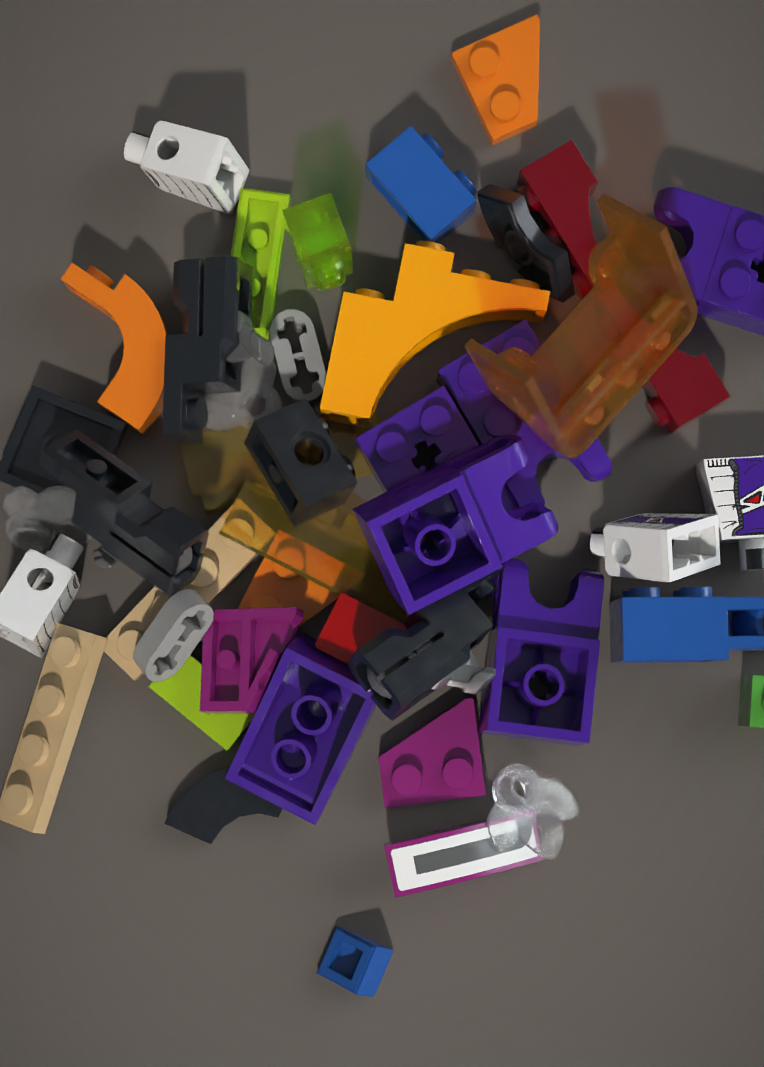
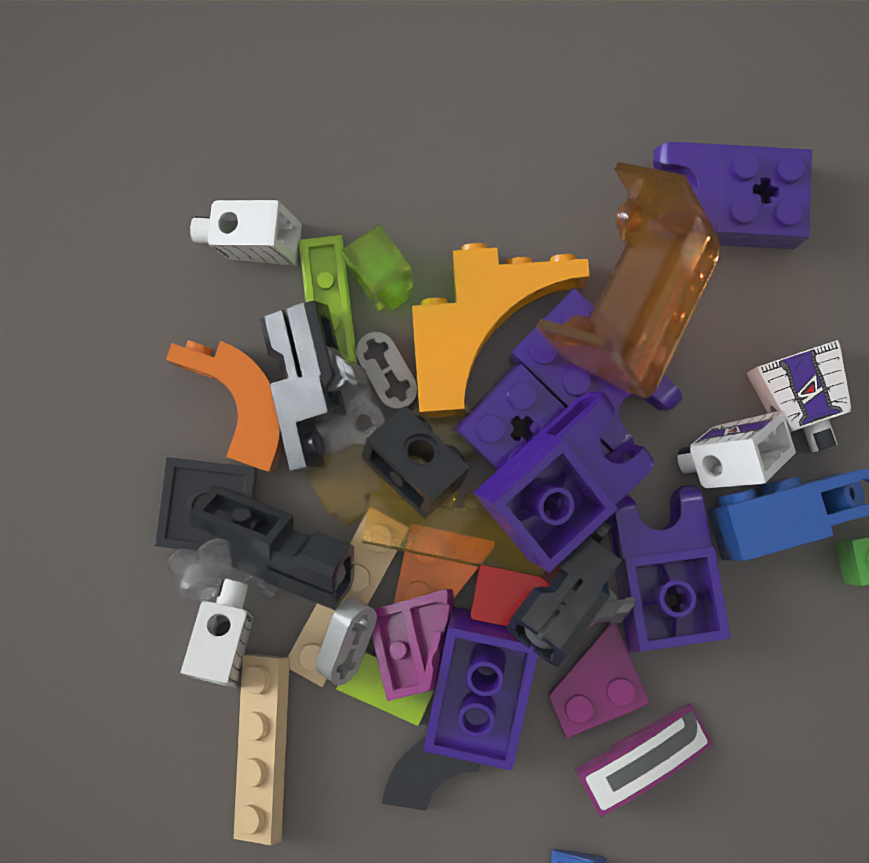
camera: 15 degrees left, 0 degrees up
(422, 186) = (452, 197): blue brick -> none
(503, 78) = (495, 89): orange wing -> none
(524, 241) = (540, 211): black tile -> none
(531, 818) = (695, 712): clear plate -> none
(559, 194) = (572, 176): dark red arch -> none

